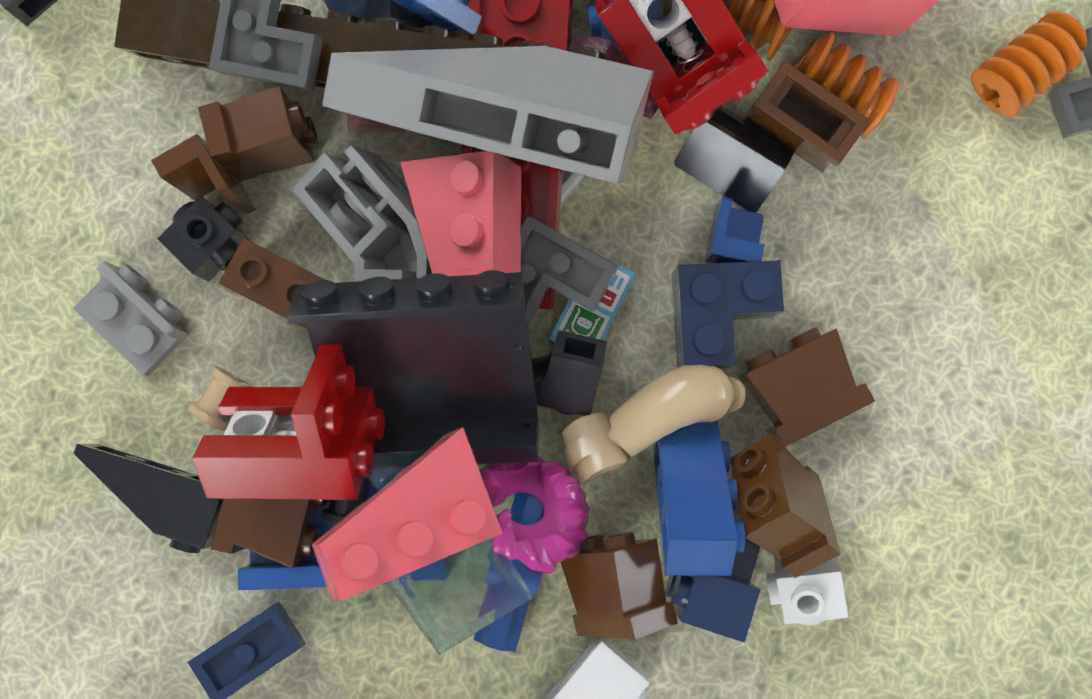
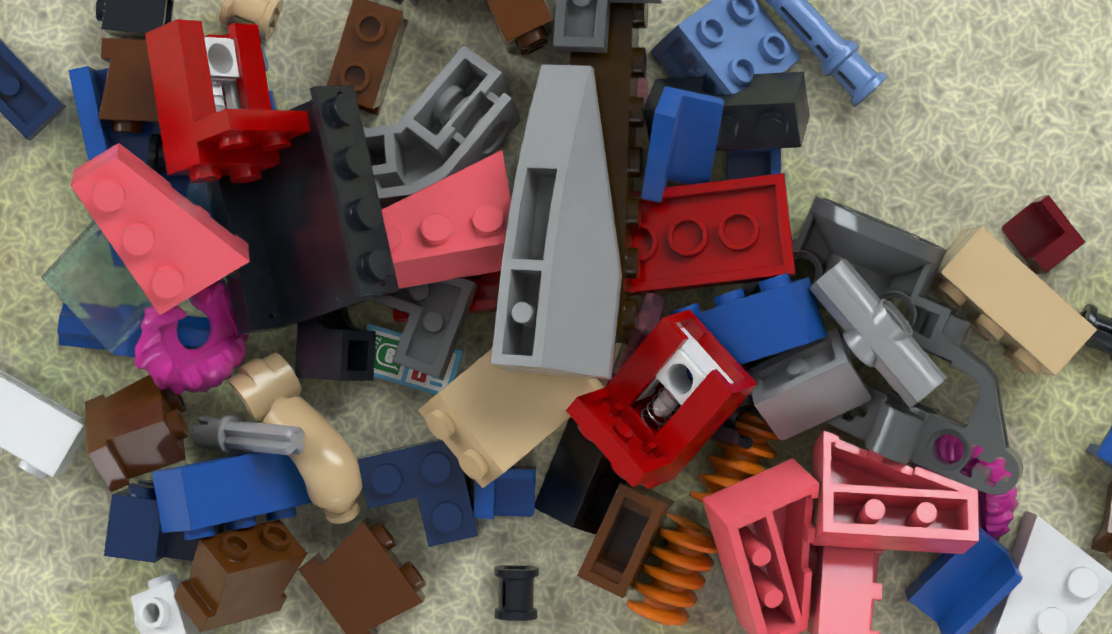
camera: 80 degrees right, 5 degrees up
(638, 487) = (234, 435): none -> light grey axle
(663, 214) = (500, 415): none -> tan slope
(837, 241) = (516, 592): none -> black bush

